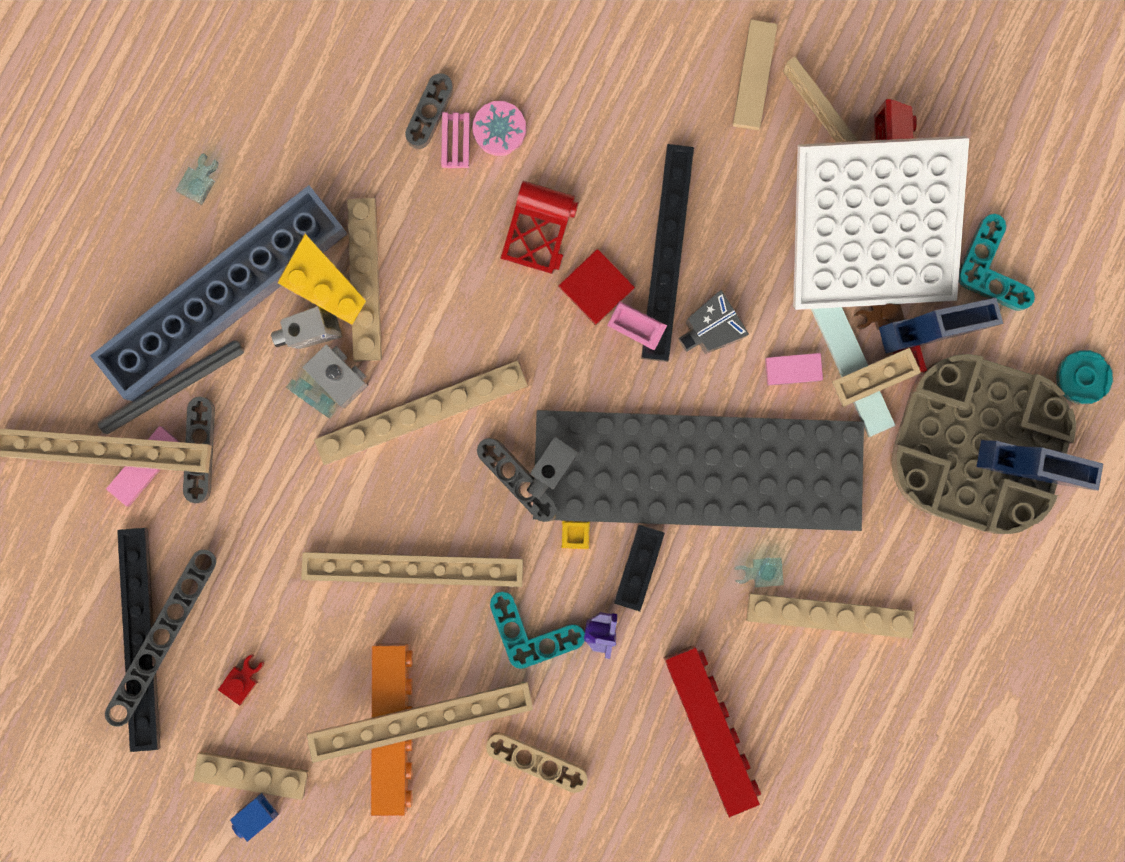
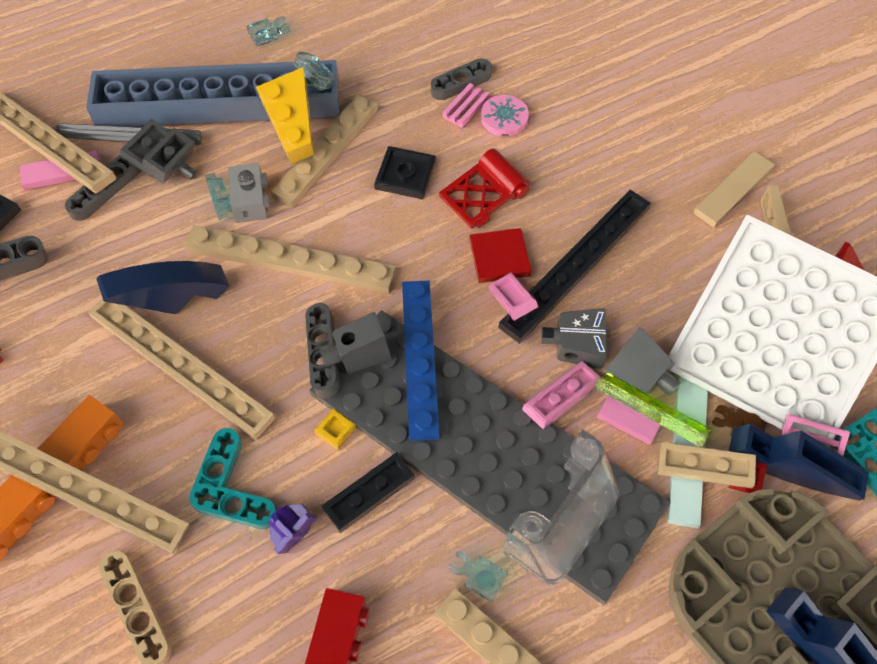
camera: 35 degrees right, 25 degrees down
(223, 391) = (159, 152): none -> dark grey plate
(305, 218) = (314, 70): none -> clear light blue plate
(307, 329) = (257, 145): light grey torso -> none
(351, 518) = (162, 285): none -> dark blue slope
(454, 255) = (405, 172): none -> black tile
(602, 435) = (420, 361): none -> blue plate
(732, 387) = (561, 395): none -> bright pink tile
(782, 321) = (644, 365): none -> dark grey torso
(809, 355) = (654, 409): none -> clear neon green tile
(812, 463) = (554, 545): none -> clear windscreen
(940, 286) = (840, 444): none -> bright pink tile

